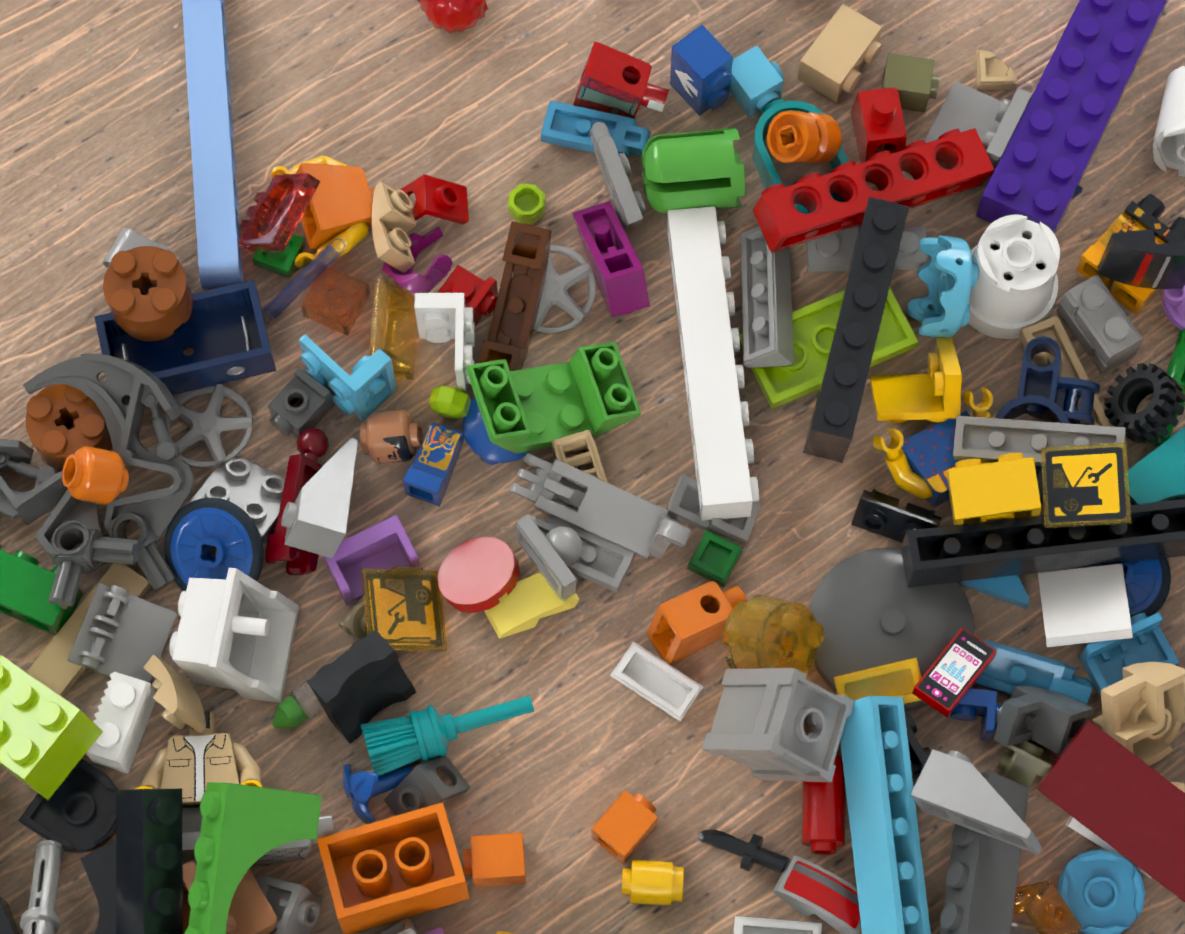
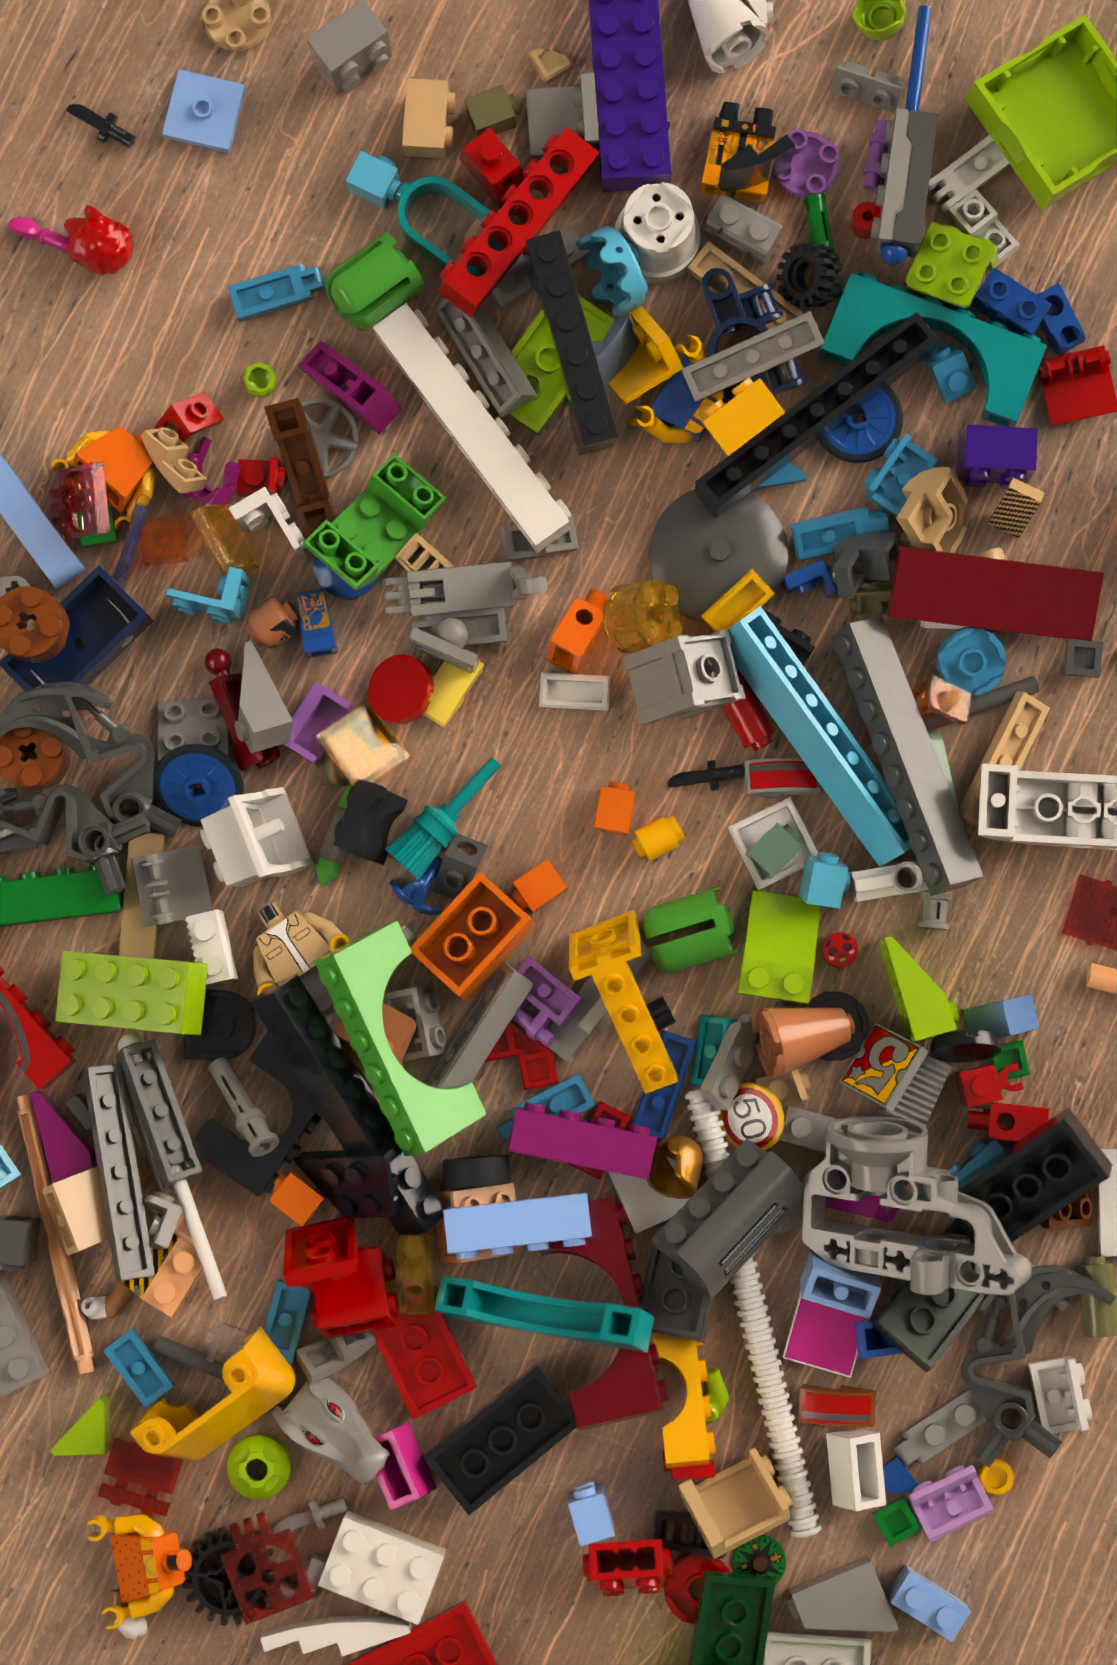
camera: 25 degrees left, 15 degrees up
(95, 475) = (81, 784): orange head -> none
(176, 696) = (240, 906): tan slope -> none
(209, 426) = (132, 692): light grey wheel -> none
(316, 404) = (197, 625): dark grey brick -> none
(449, 402) = (299, 571): lime tile -> none
(615, 170) = (314, 317): light grey hinge -> none
(617, 83) = (272, 244): red torso -> none
(701, 70) = (331, 197): blue brick -> none
(715, 558) = (562, 574): green tile -> none
(803, 137) = (442, 209): orange wheel -> none
(880, 515) = (662, 472): black hinge -> none
(898, 366) = (616, 348): none -> sand blue slope
(954, 672) = (785, 563): tile -> none
(960, 794) = (839, 653): light grey slope -> none
(1085, 485) = (805, 372): piece -> none
(1085, 605) = (849, 458): white tile -> none

